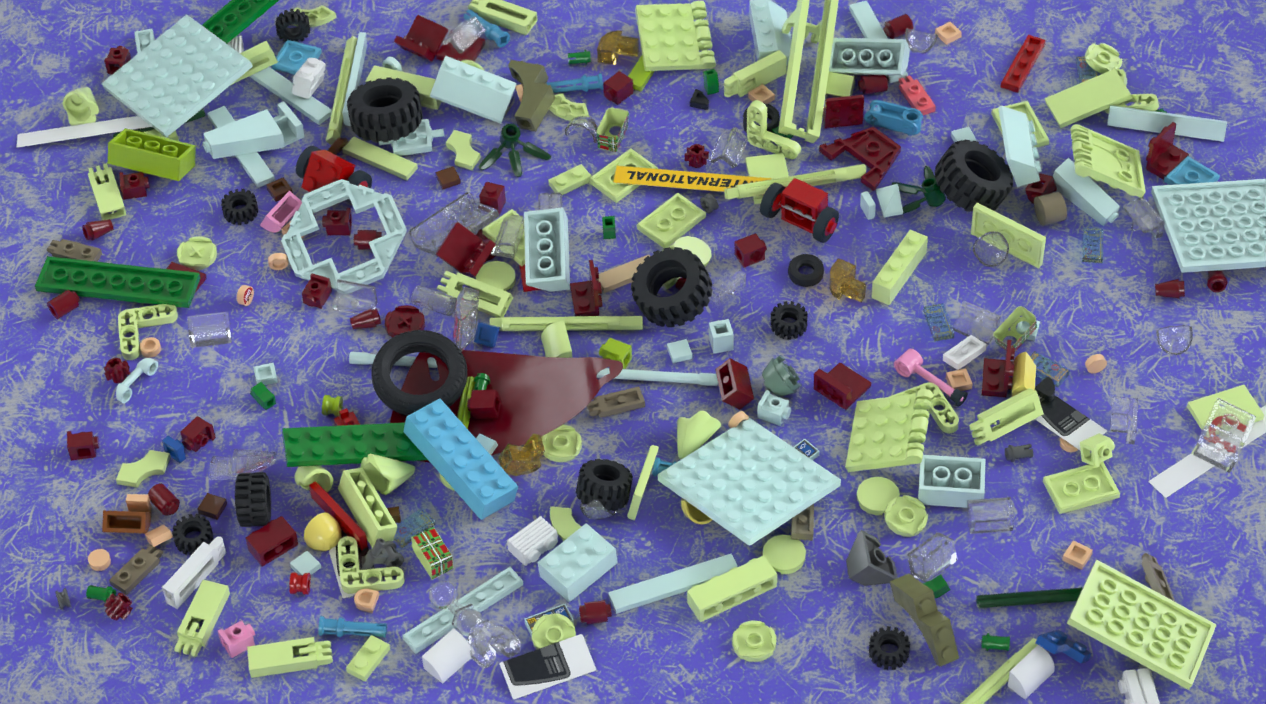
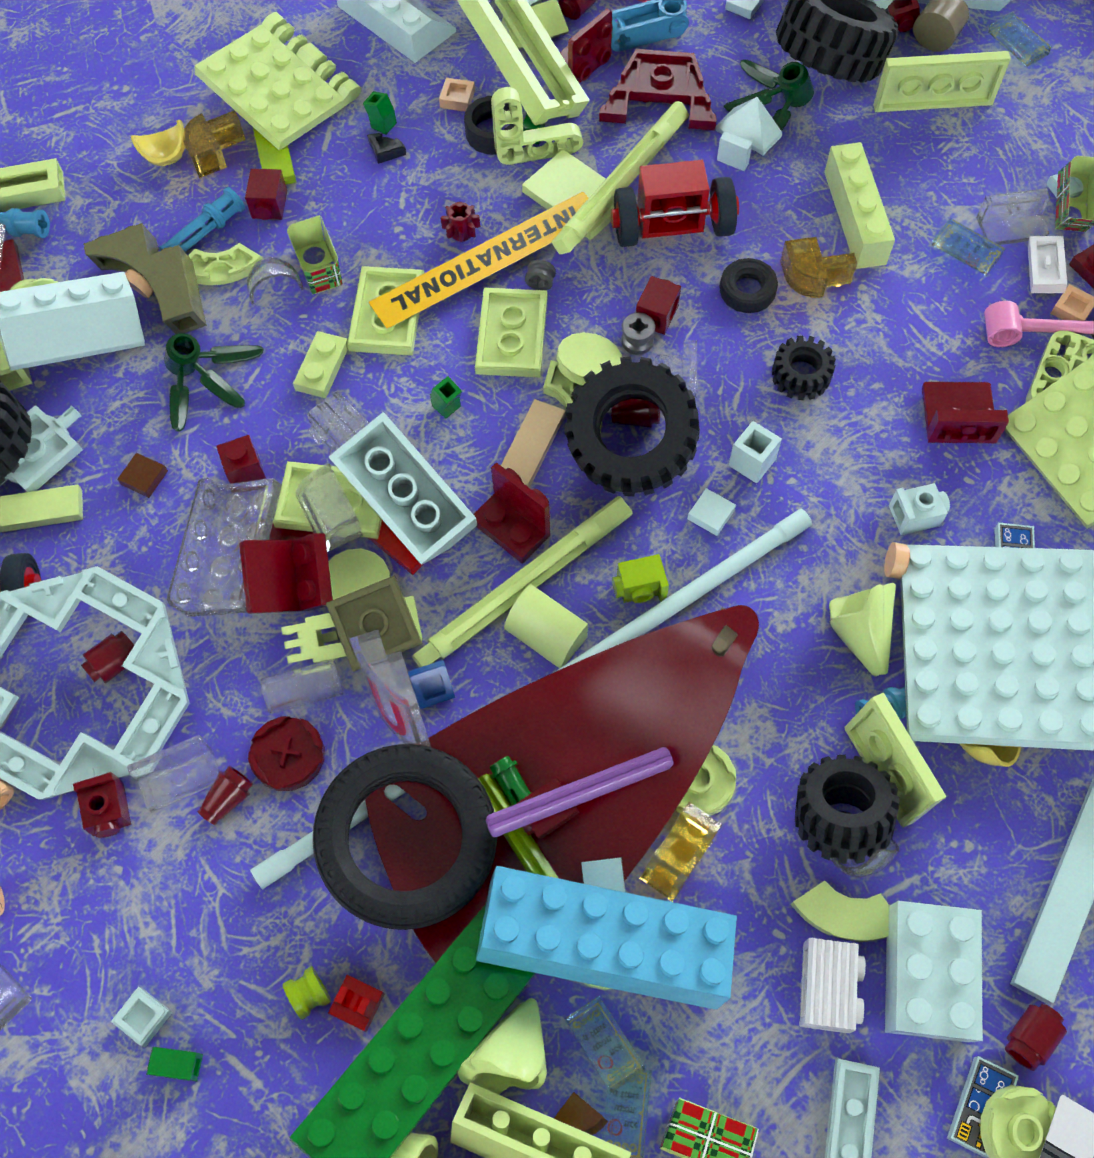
camera: 40 degrees left, 15 degrees up
(338, 222) = (35, 661): dark red brick -> none
(426, 498) = (605, 1044): none -> clear light blue tile
(461, 145) = (114, 412): yellowish green tile -> none
(491, 291) = (371, 609): none -> olive tile
(499, 399) = (578, 792): none -> medium lavender axle
(581, 57) = (174, 184): green pin -> none
(589, 35) = (162, 147): none -> light yellow helmet
(727, 257) = (632, 339): none -> flat silver wheel
(730, 147) = (487, 184): clear panel -> none
(734, 383) = (842, 509): dark red brick -> none
(756, 74) = (429, 69): yellowish green hinge -> none
(780, 377) = (891, 457): sand green cone -> none
(991, 249) = (932, 110): clear helmet -> none

